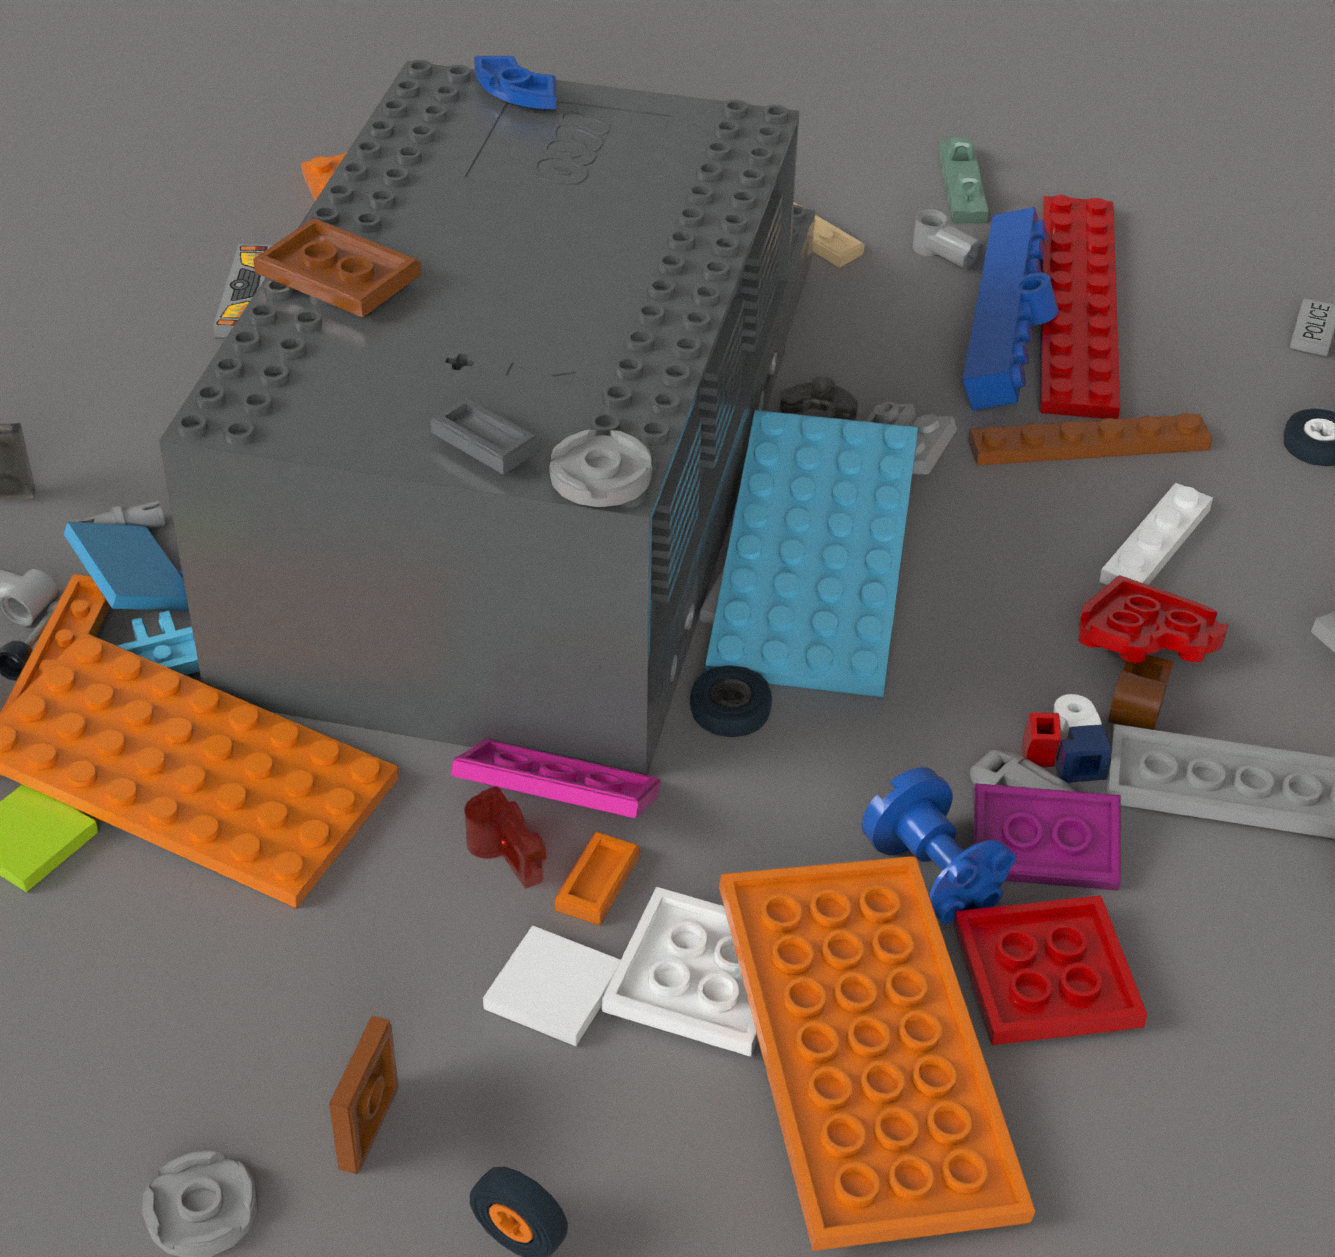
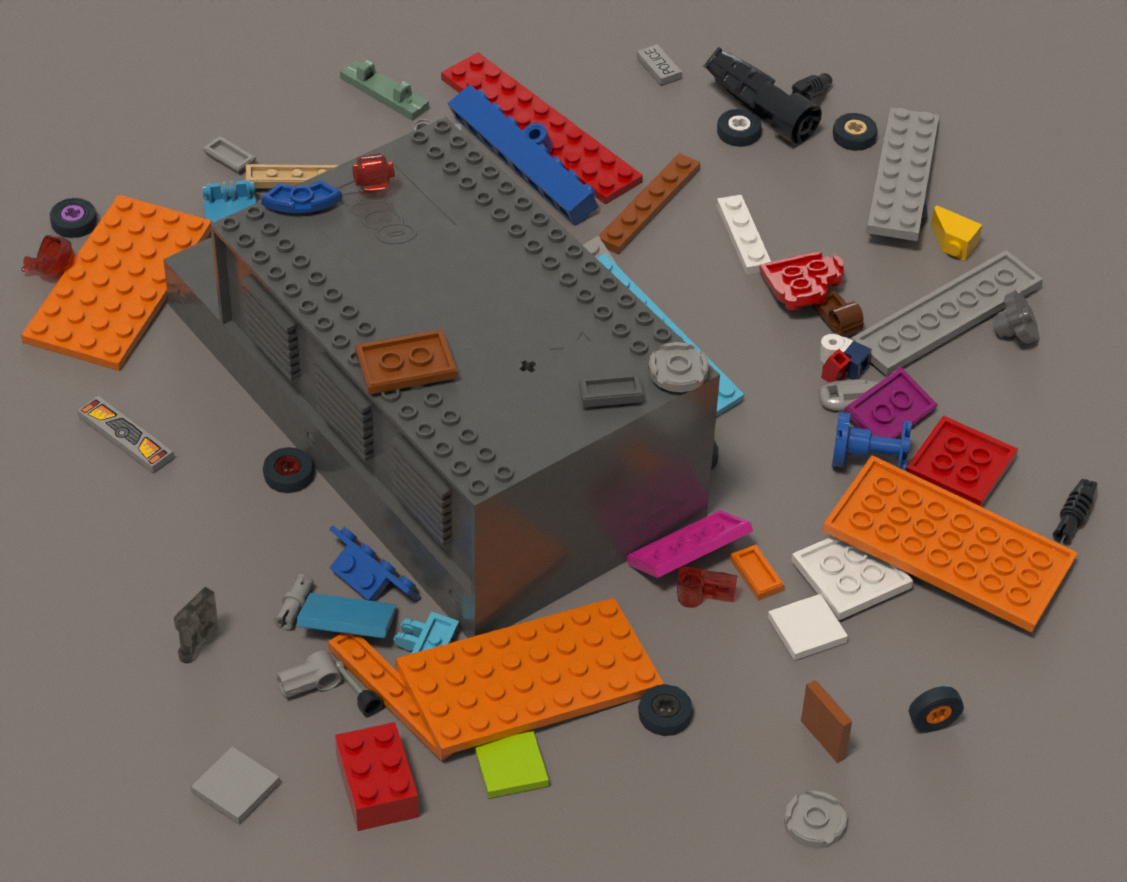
camera: 50 degrees left, 5 degrees up
(260, 945) = (665, 722): none -> black bush
(608, 93) = (372, 172): none -> clear red head
(1123, 1158) = (1075, 509): none -> black hinge

